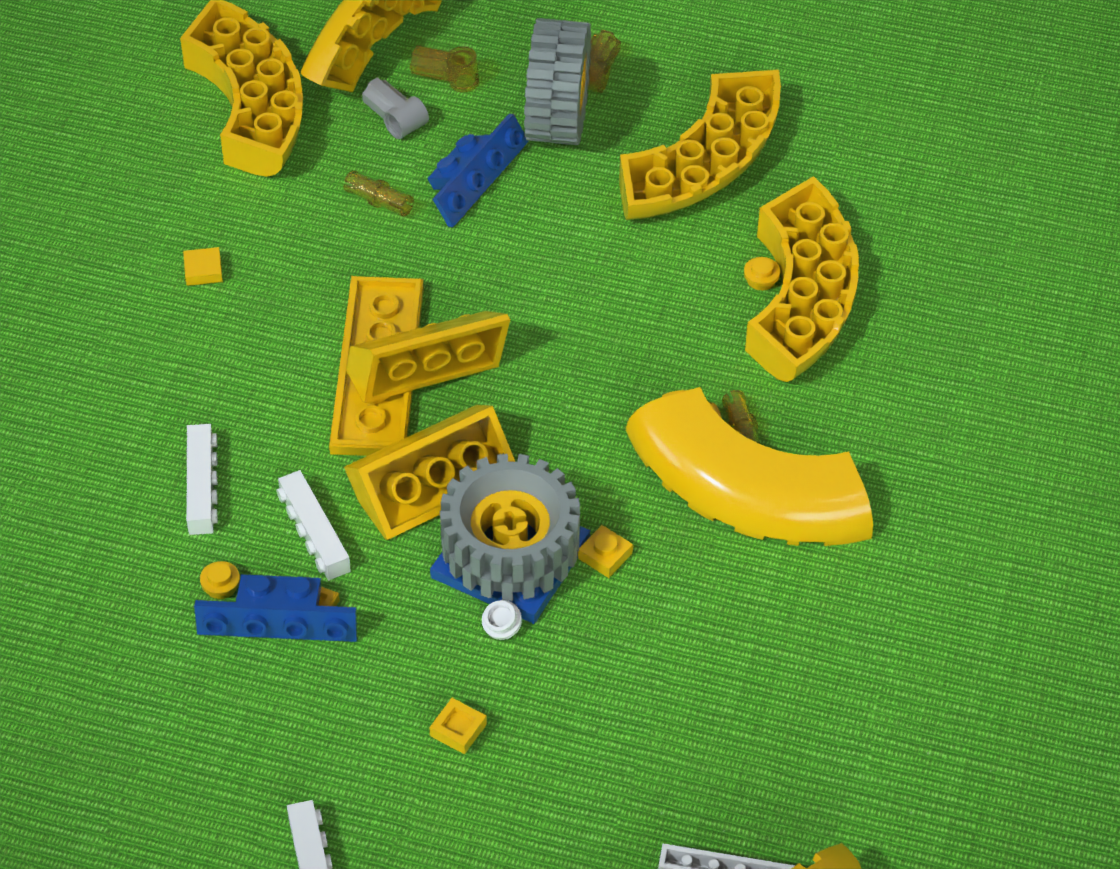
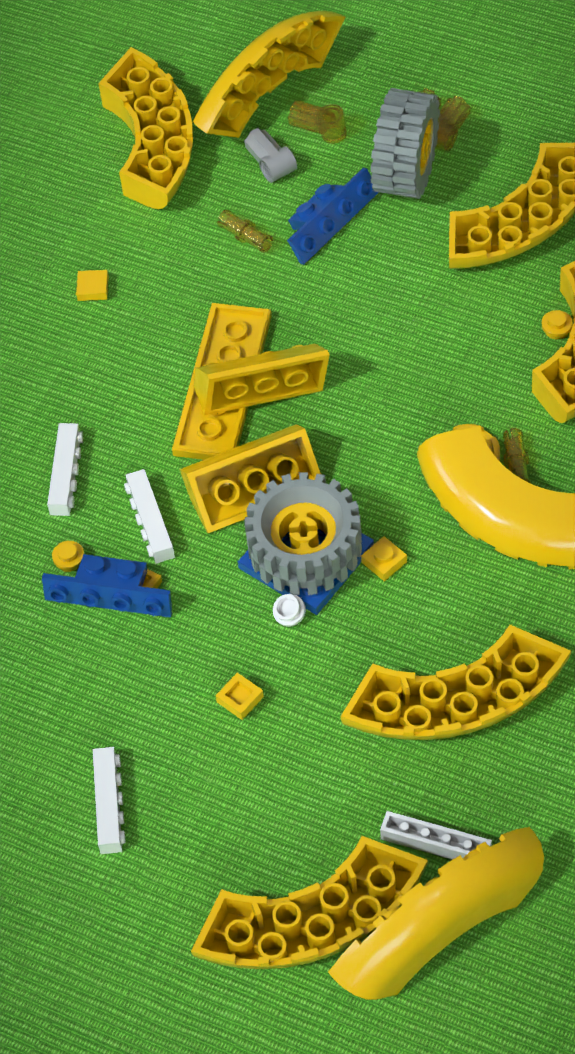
camera: 15 degrees right, 5 degrees up
(723, 703) = (459, 697): none -> yellow brick

